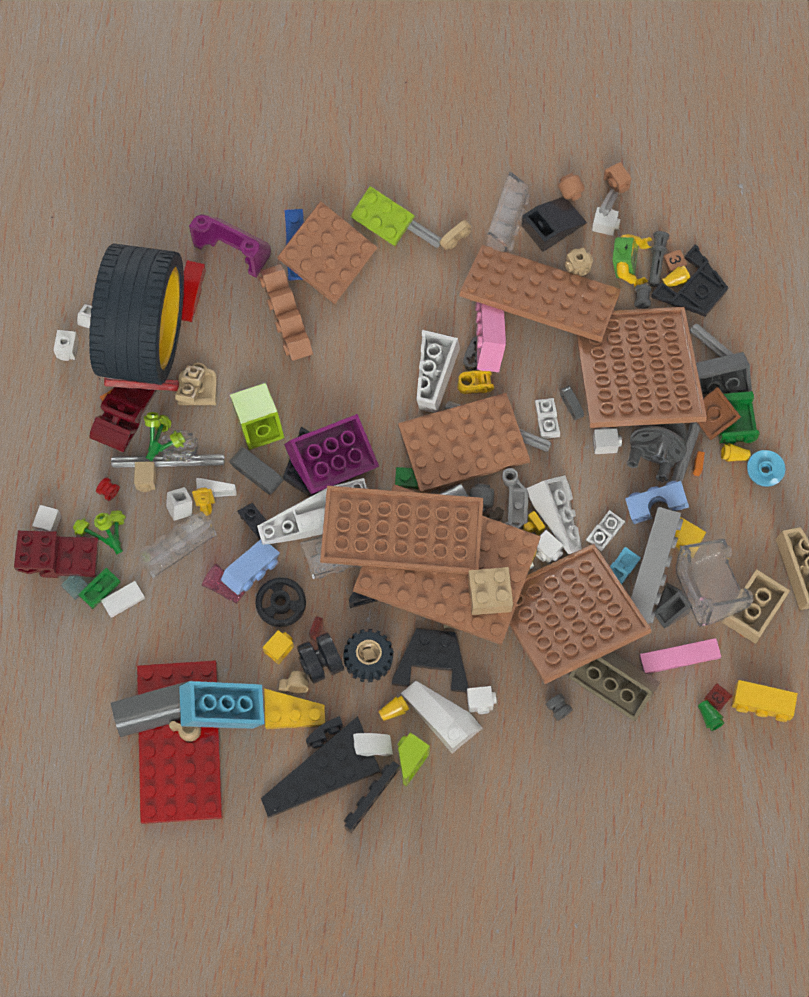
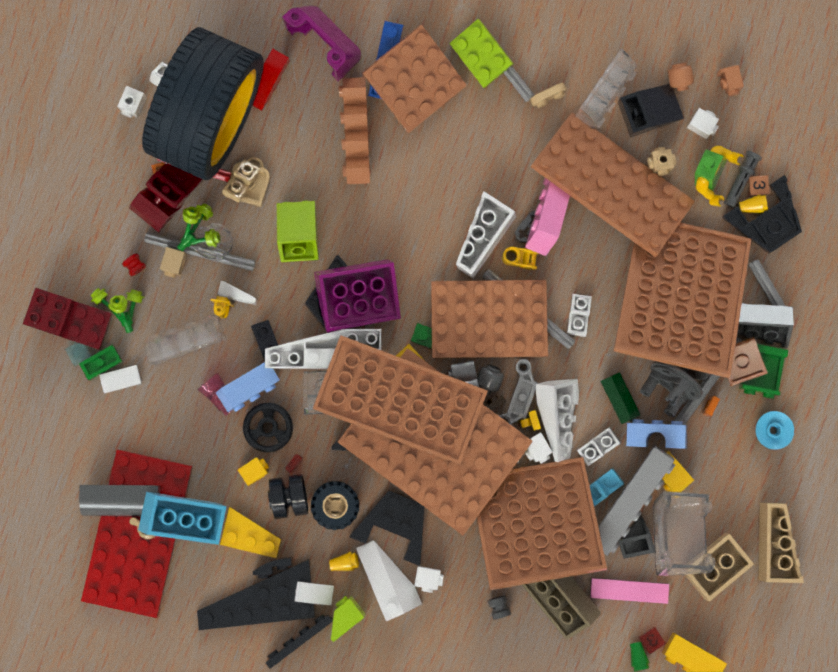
camera: 15 degrees right, 15 degrees up
(46, 519) = (67, 281): white brick -> none
(179, 503) = (197, 301): white brick -> none
(256, 471) = (281, 287): dark grey beam -> none
(295, 684) = (260, 510): tan piece -> none
(490, 591) = (465, 486): tan brick -> none
(571, 403) = (607, 307): dark grey beam -> none
(606, 440) = (628, 360): white brick -> none
(608, 202) = (712, 107): light grey axle -> none
(611, 480) = (620, 398): none -> dark green piece
(642, 296) = (714, 215): dark grey bush -> none
(734, 453) = (749, 405): yellow cone -> none

